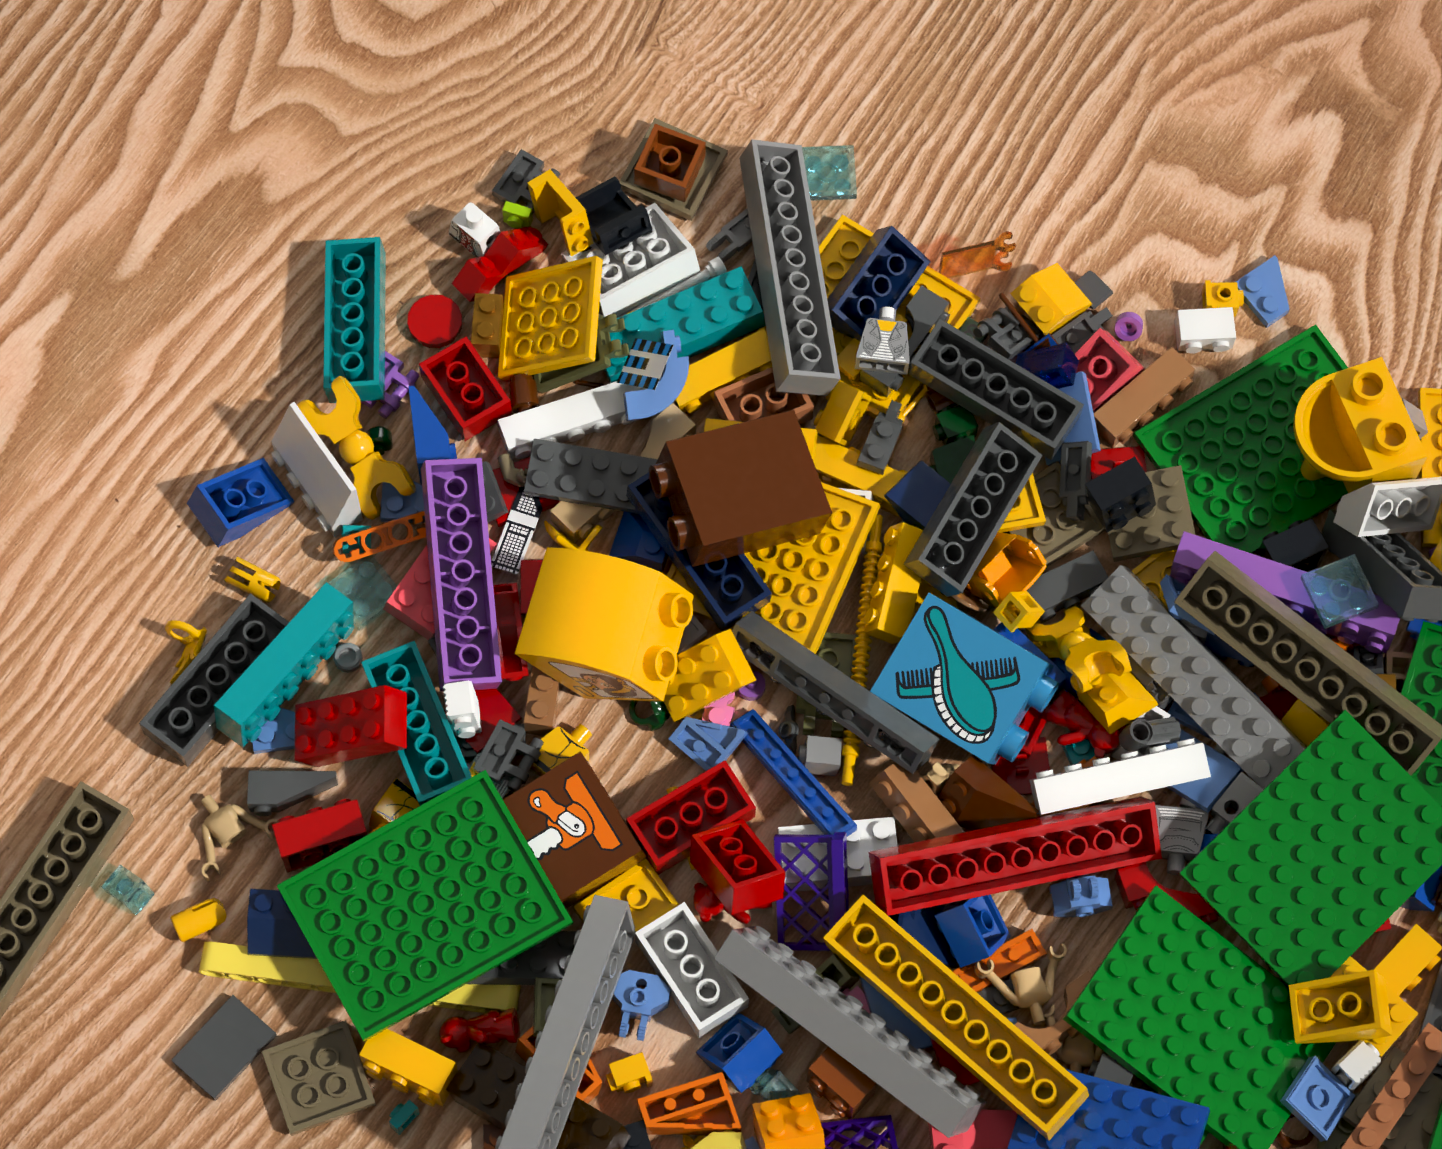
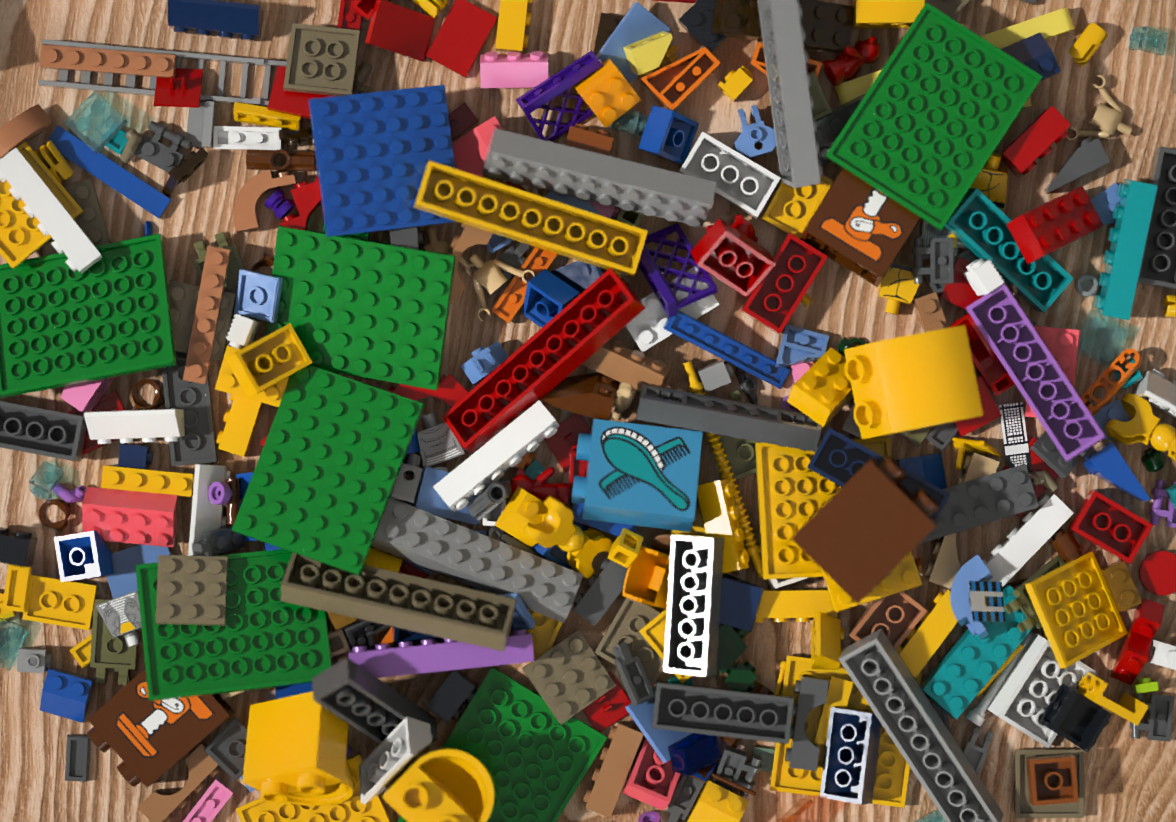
camera: 160 degrees right, 20 degrees up
(881, 440) = (787, 635): dark grey hinge -> none
(884, 344) = (820, 705): light grey torso -> none
(1121, 495) = (592, 672): black brick -> none
(1339, 591) = (401, 665): clear light blue plate -> none

